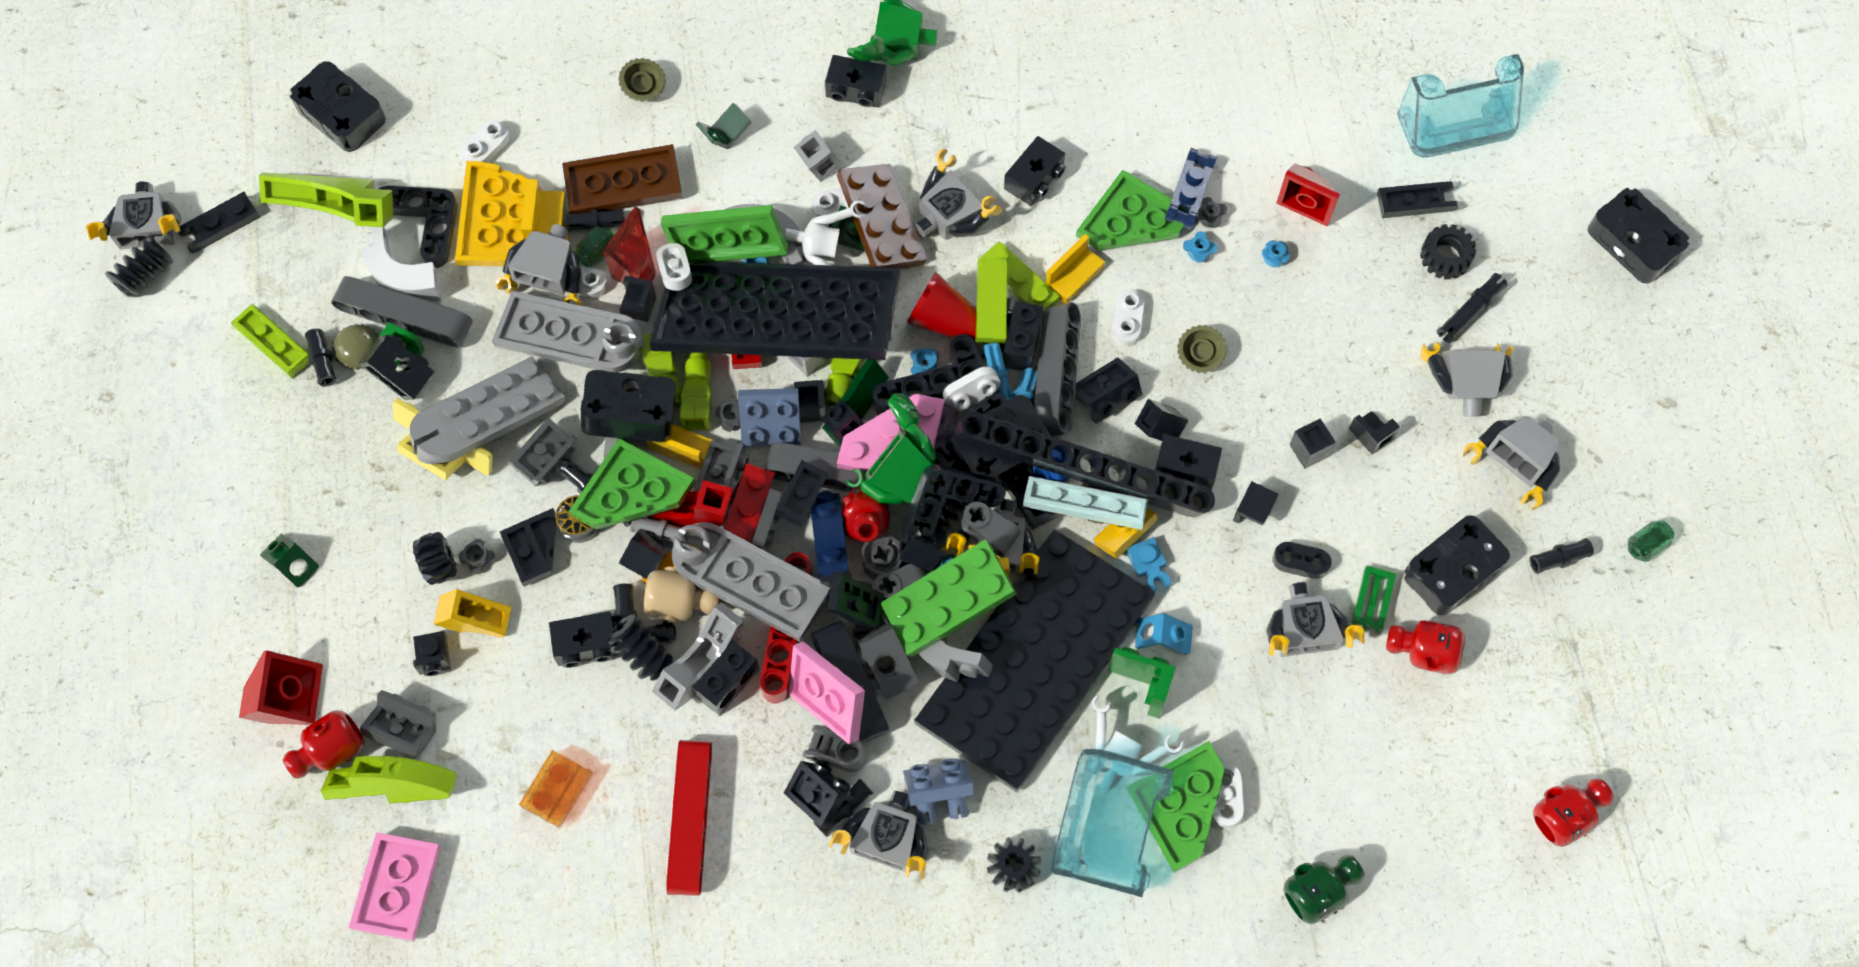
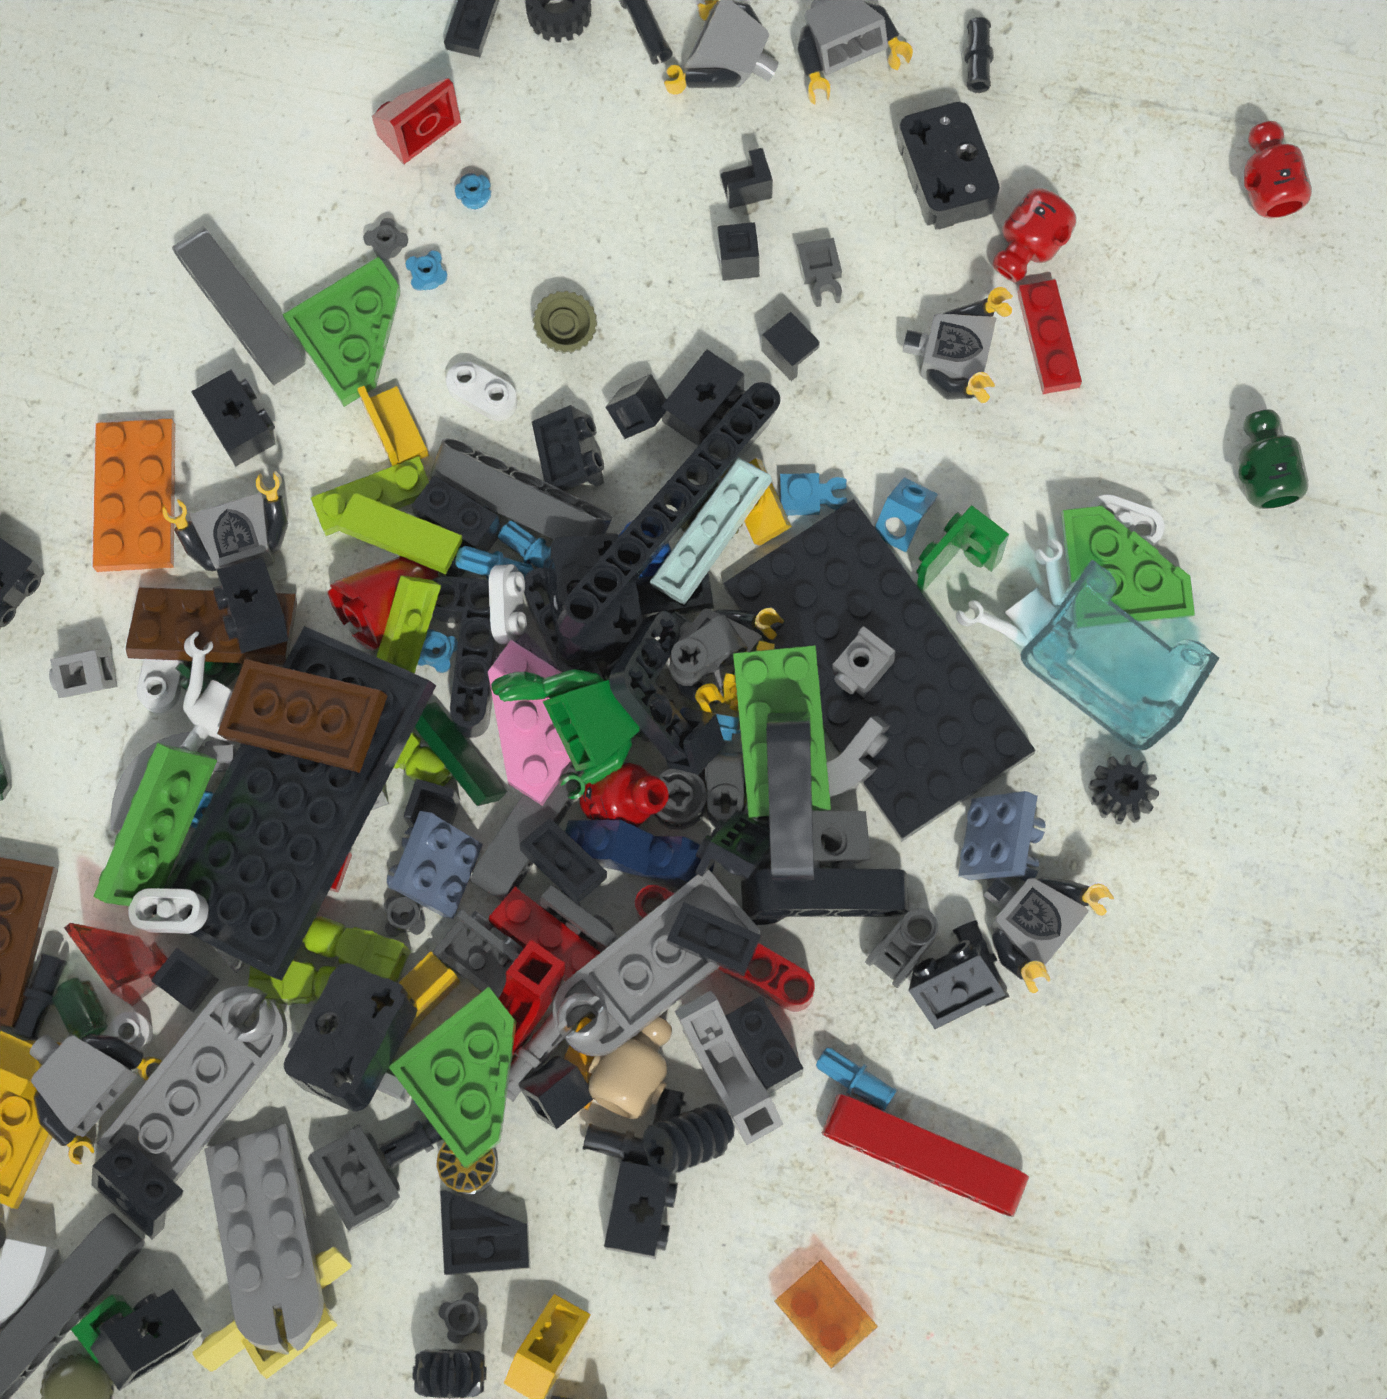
camera: 65 degrees left, 5 degrees up
(493, 324) = (135, 1186): none -> black bracket
(727, 751) = (855, 1078): none -> dark azure axle
(778, 607) = (713, 939): none -> black plate
(826, 692) = (841, 924): bright pink plate -> none
(832, 288) = (302, 715): none -> reddish brown plate
(841, 420) = (482, 776): black bracket -> none
(897, 610) = (790, 796): none -> black beam
(899, 229) = (251, 605): none -> black brick
(927, 333) = (408, 622): none -> lime hinge
(963, 131) = (129, 494): none -> orange plate
(1032, 649) = (862, 679): none -> light grey brick
(1116, 141) = (238, 306): none -> dark grey beam
(1190, 188) = (346, 247): plate -> none
(1303, 566) = (867, 321): black beam -> none
(1329, 504) = (820, 266): none -> dark grey plate
(1353, 690) = (1049, 336): none -> red plate
(1367, 622) = (957, 258): green tile -> none

